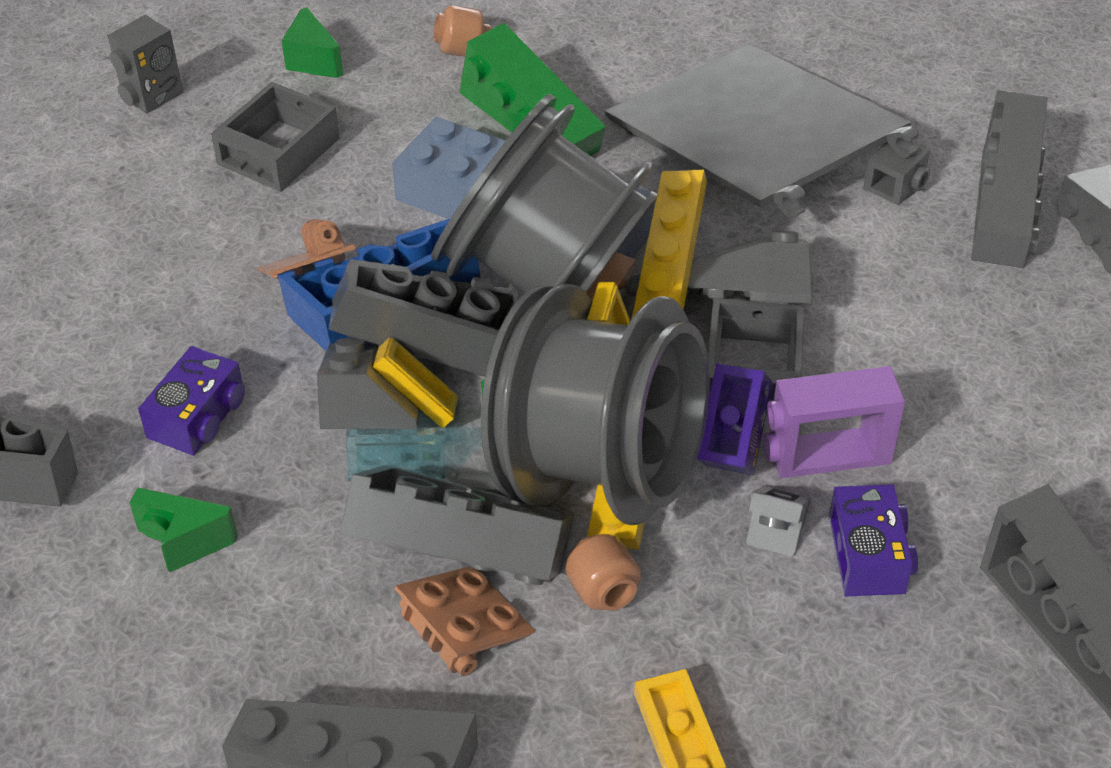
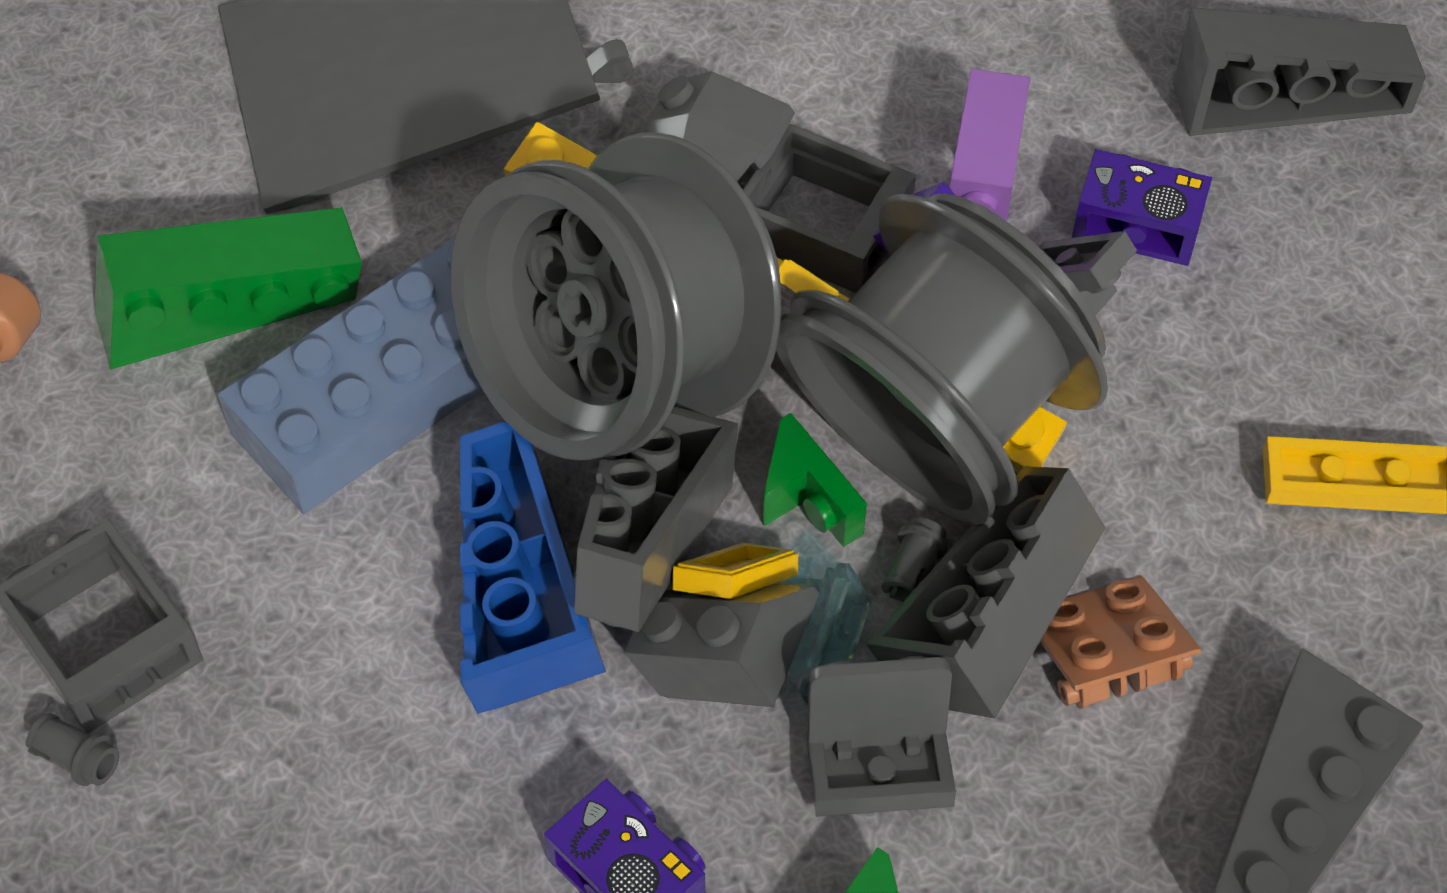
camera: 70 degrees left, 10 degrees up
(196, 161) = (73, 750): none -> dark grey pin
(313, 496) = (880, 736): none -> dark grey bracket
(321, 242) = (405, 645): nougat hinge -> none
(603, 572) = (1110, 467): nougat head -> none

